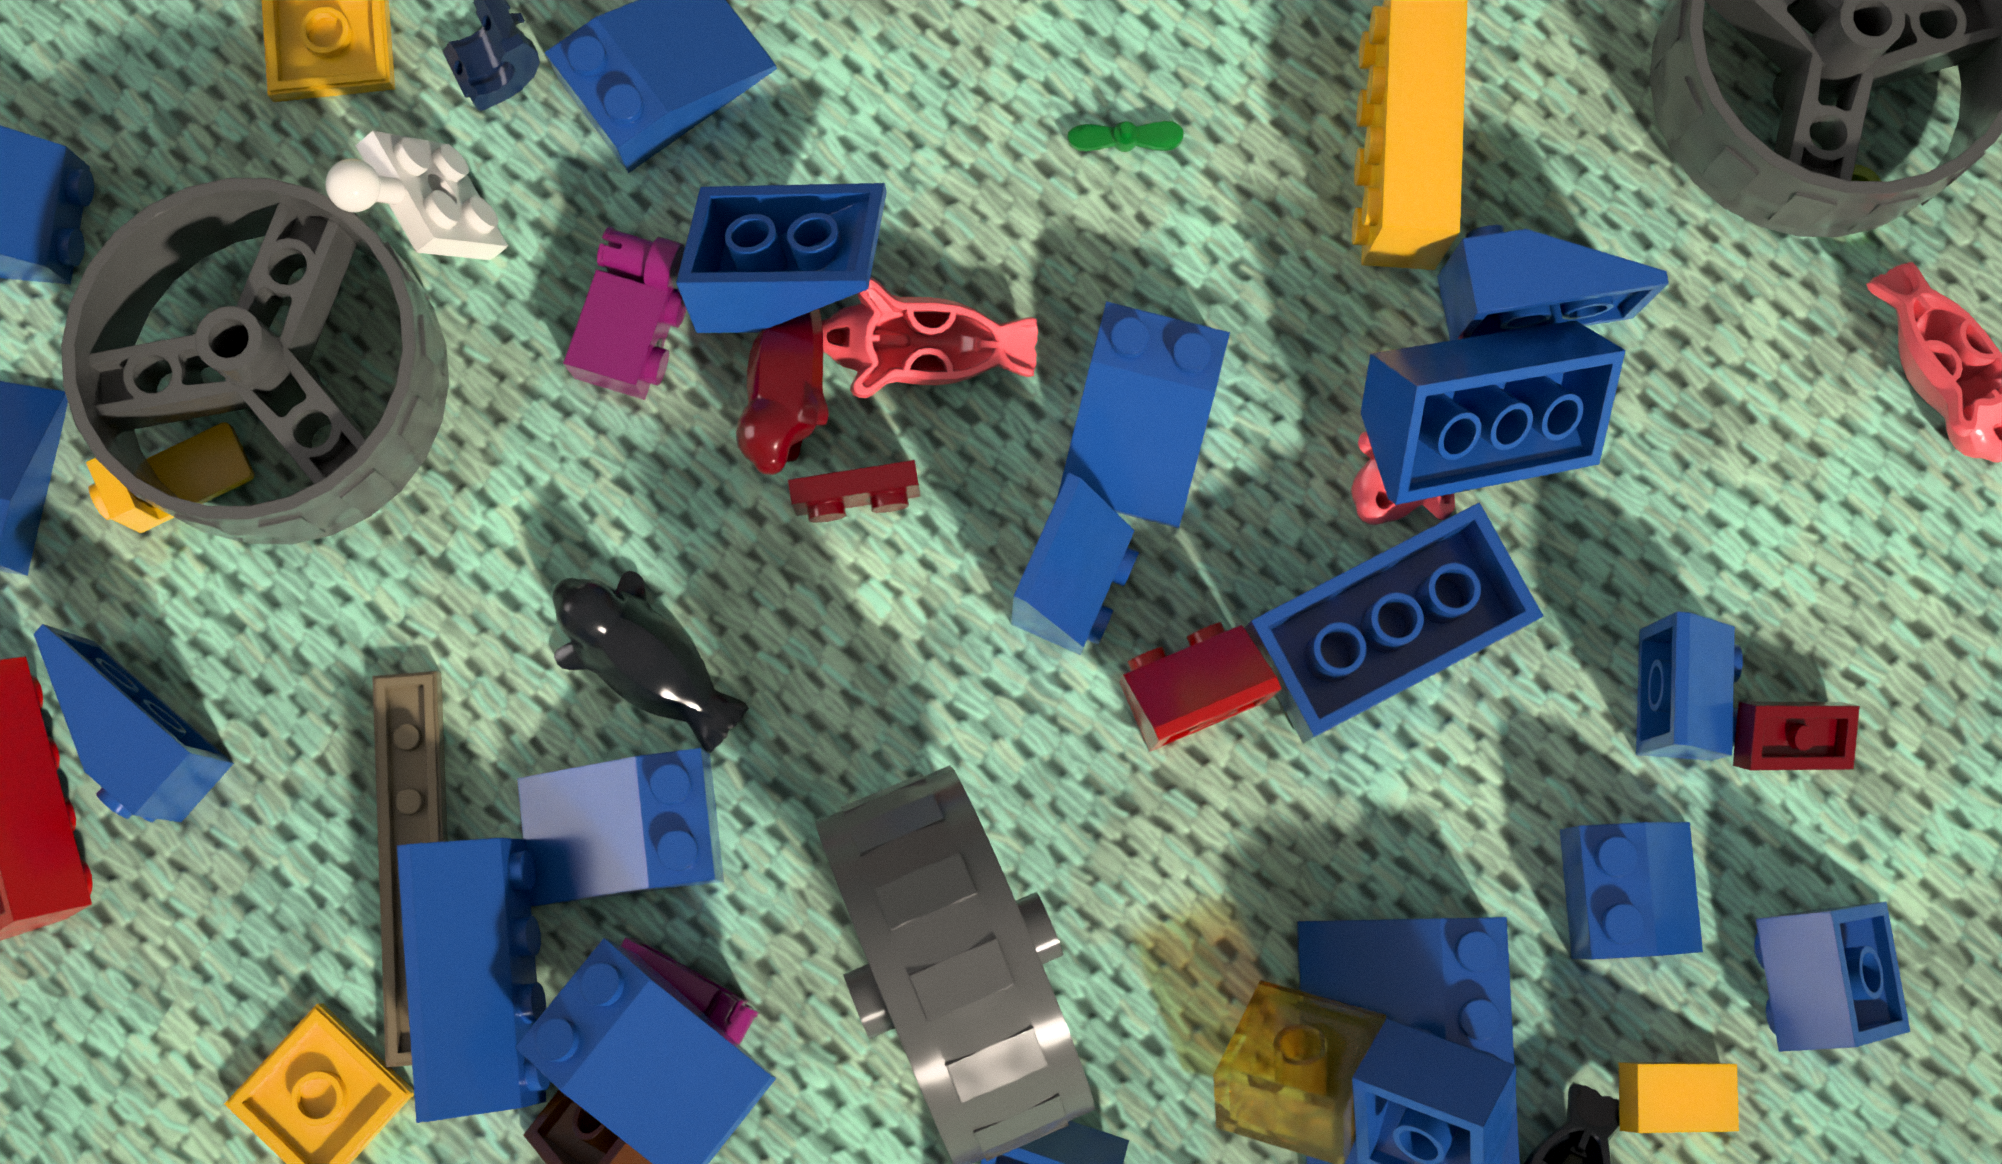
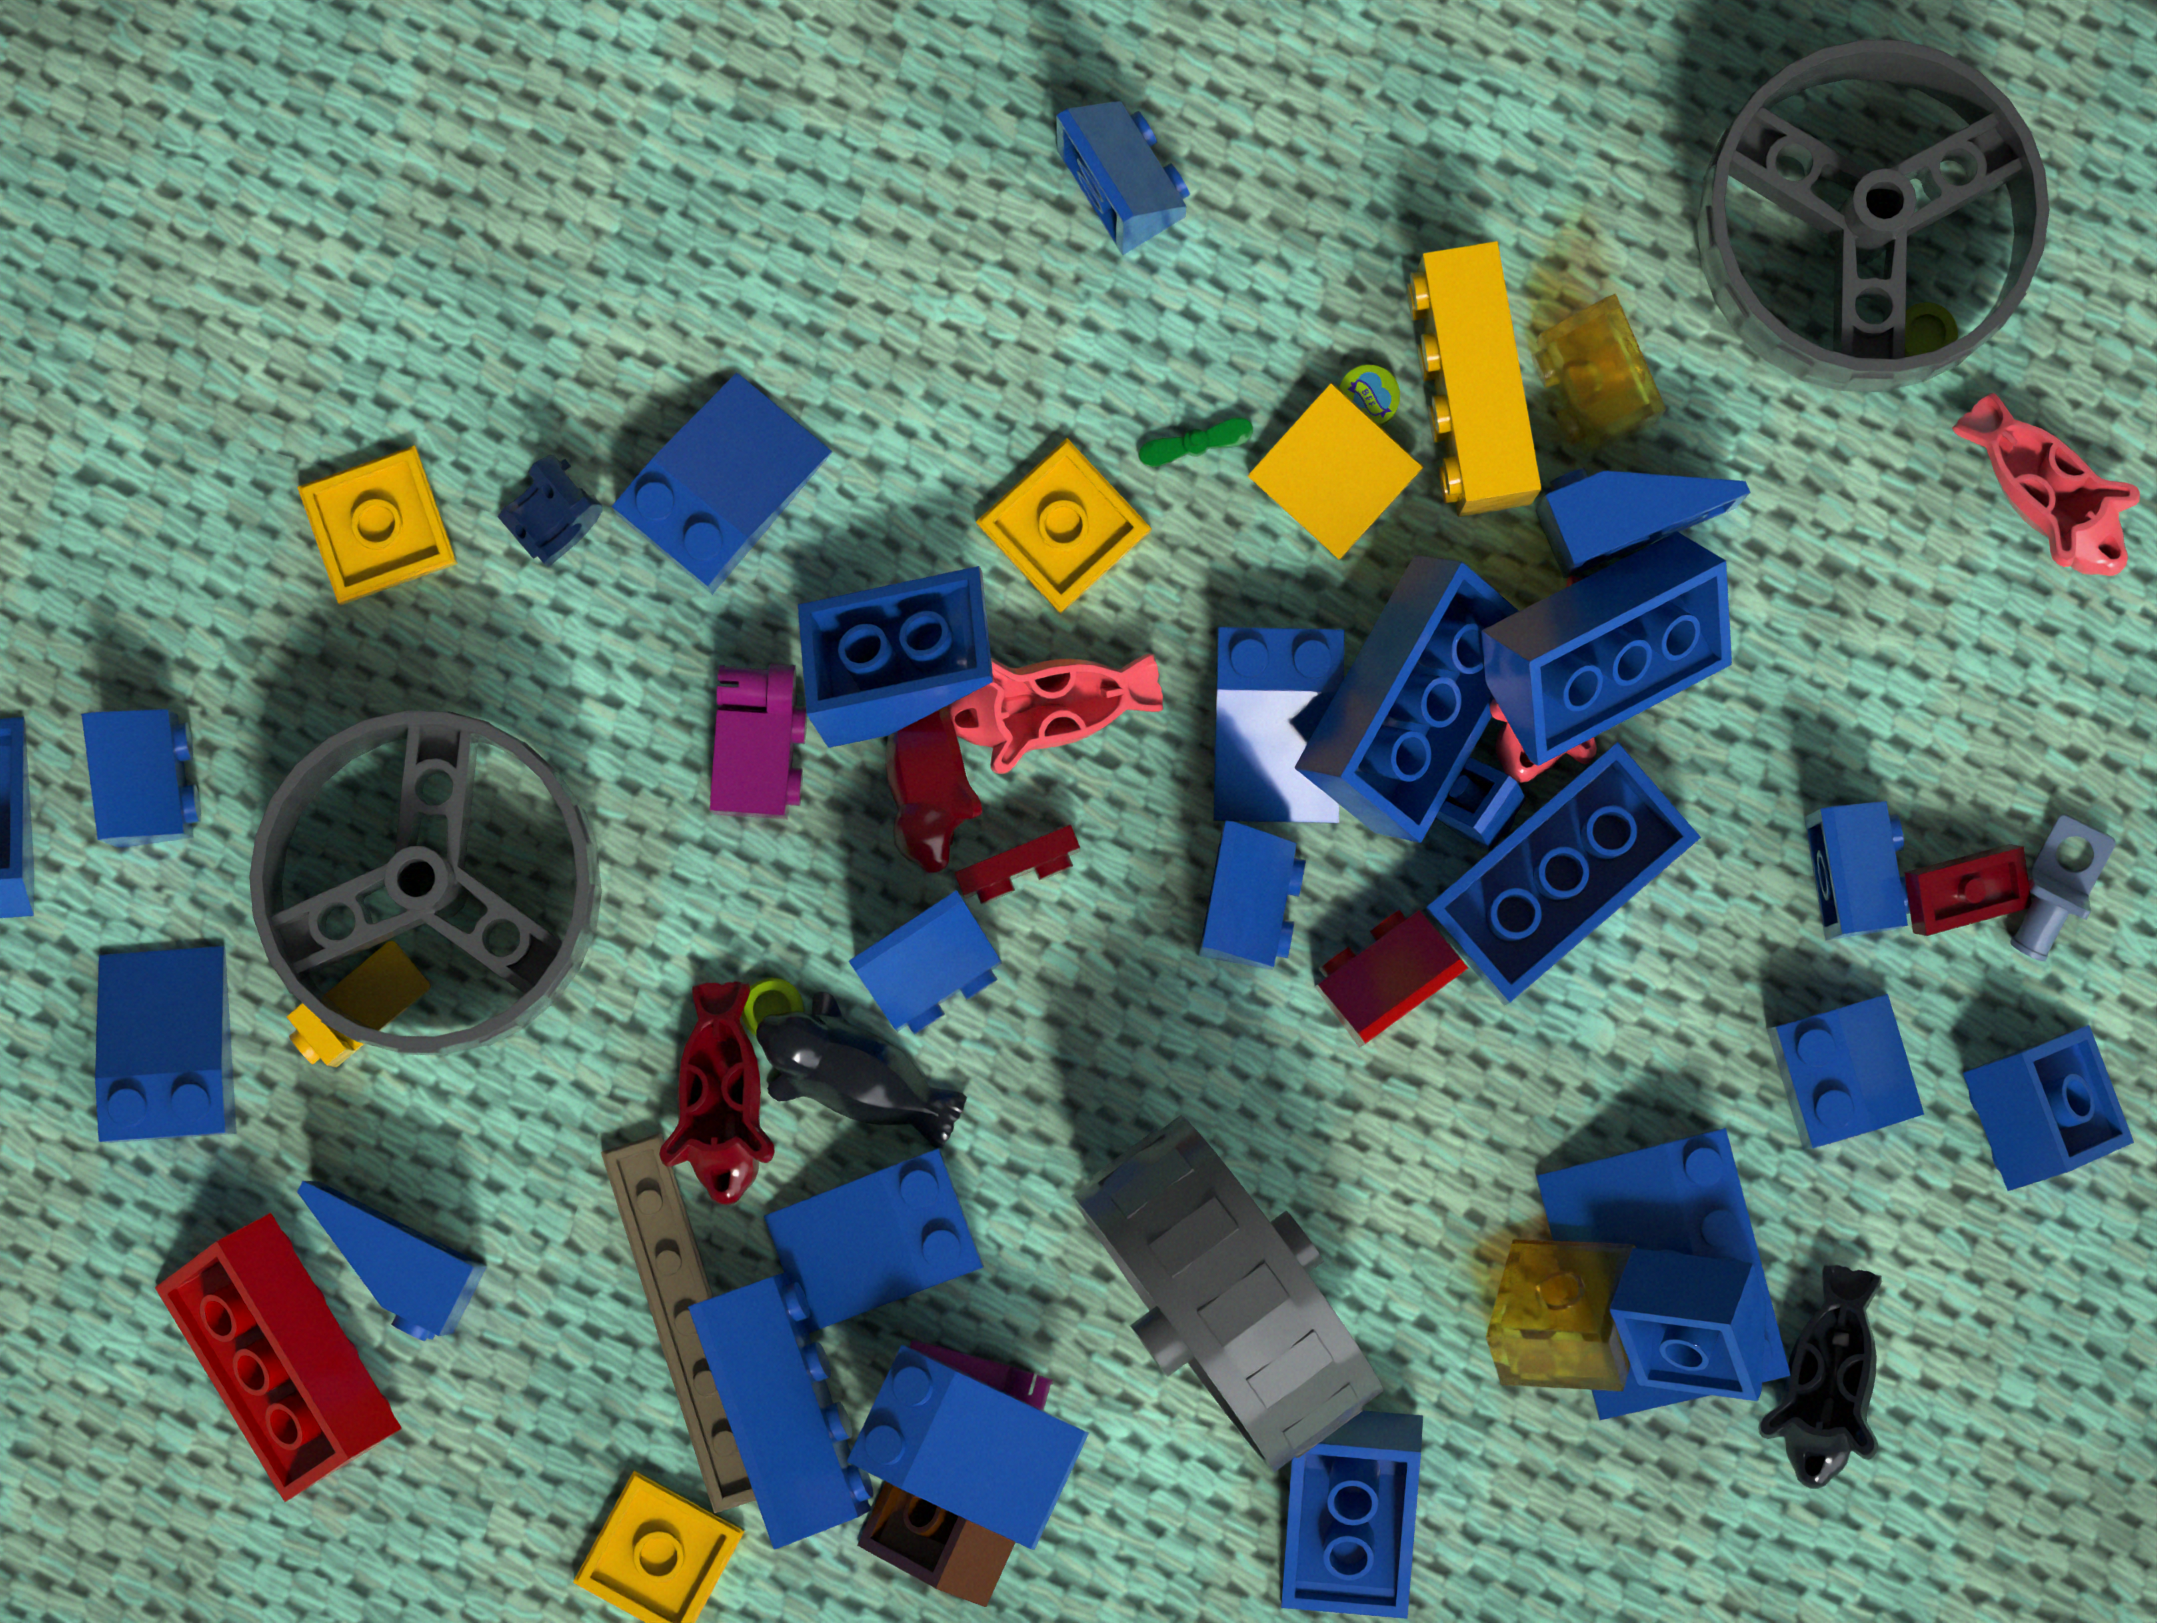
camera: 10 degrees left, 5 degrees up
(426, 191) = (534, 673): white plate -> none
(499, 649) = (719, 1098): none -> dark red animal
(579, 563) = (768, 998): none -> lime tile
(733, 557) = (927, 964): none -> blue slope
(979, 184) = (1063, 526): none -> yellow tile
(1254, 190) = (1336, 471): none -> yellow tile
(1279, 416) = (1409, 702): none -> blue brick
(1301, 131) = (1373, 391): none -> lime tile
(1319, 526) = (1481, 804): none -> blue slope
(1534, 152) = (1598, 377): none -> clear yellow slope
(1678, 1097) = (1923, 1255): yellow tile -> none
(1883, 759) = (2059, 889): none -> sand blue bracket

